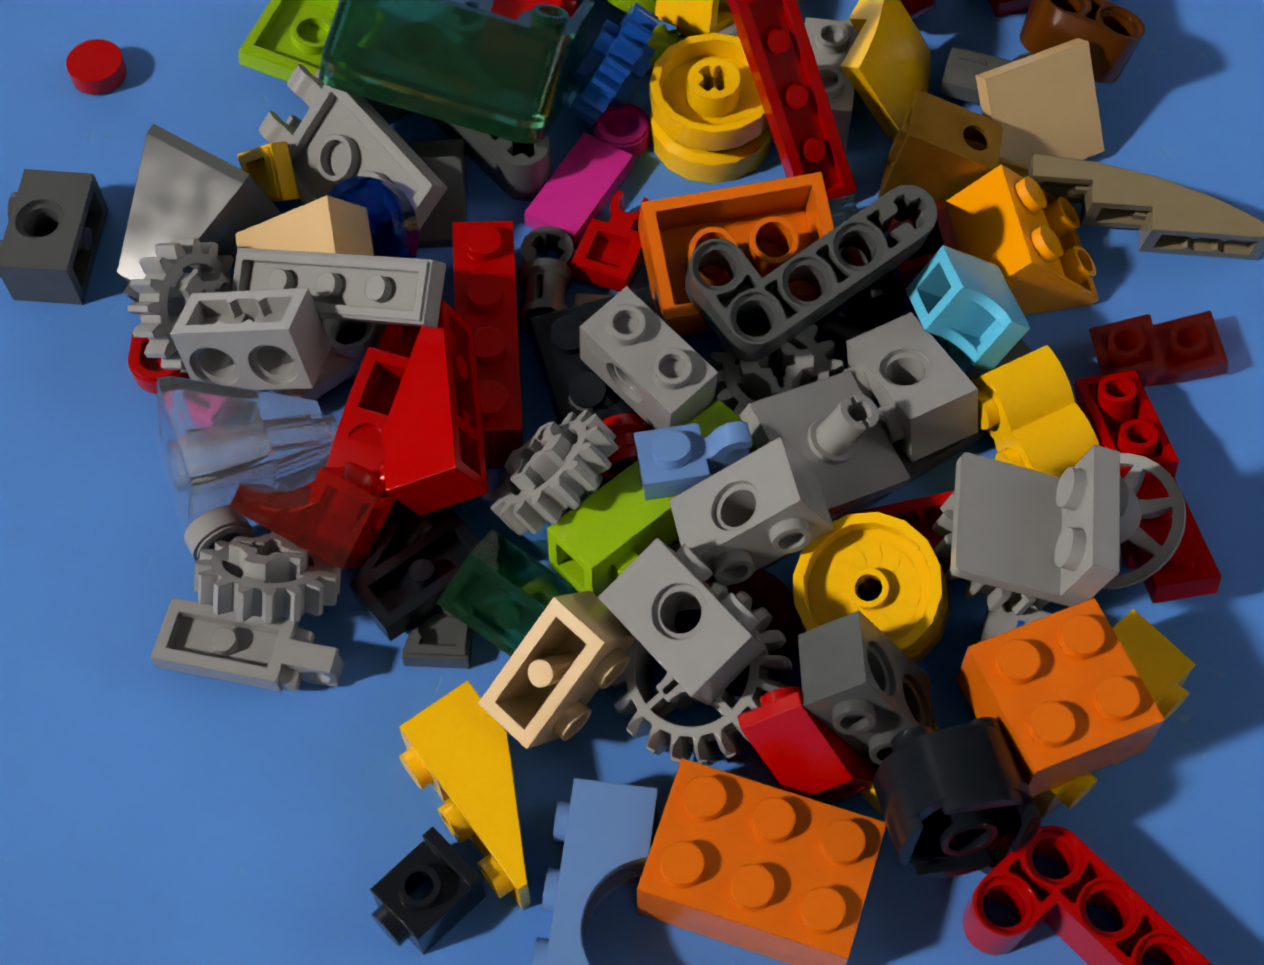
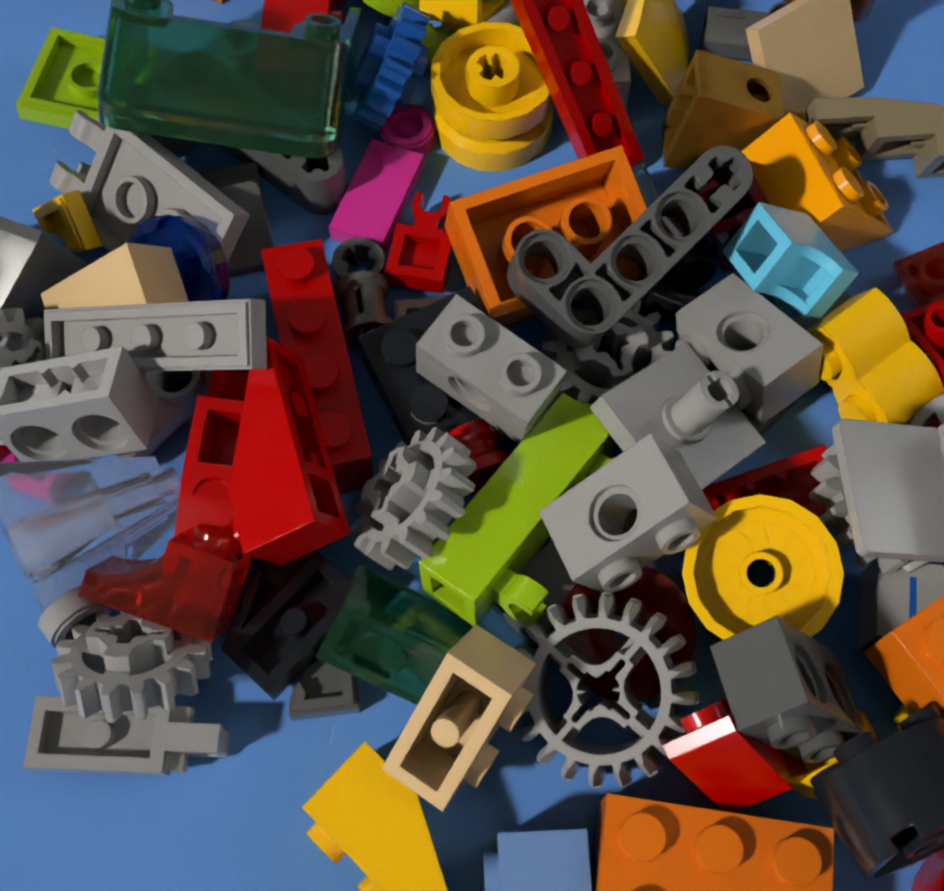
camera: 10 degrees left, 5 degrees up
(647, 601) = (541, 641): light grey brick -> none
(680, 458) = (542, 467): medium blue plate -> none

